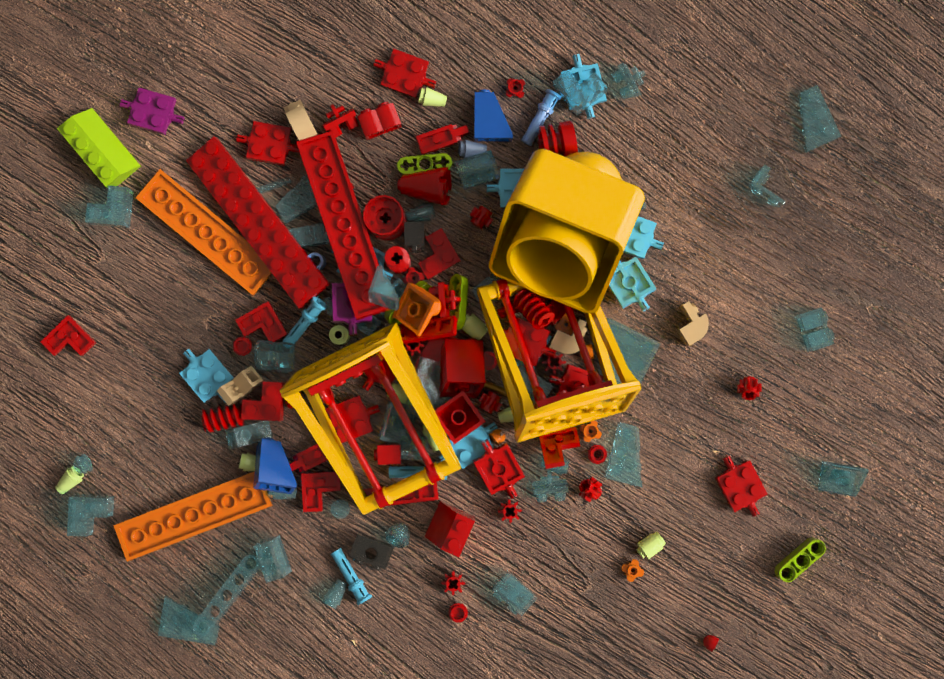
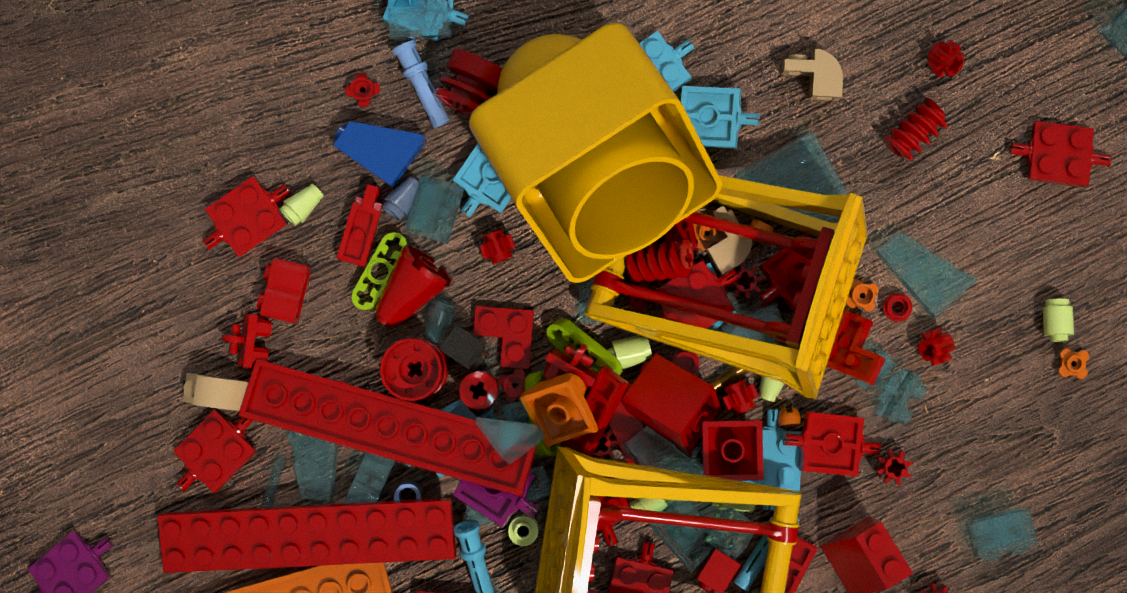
camera: 55 degrees left, 0 degrees up
(700, 399) = (916, 129): none -> red piece

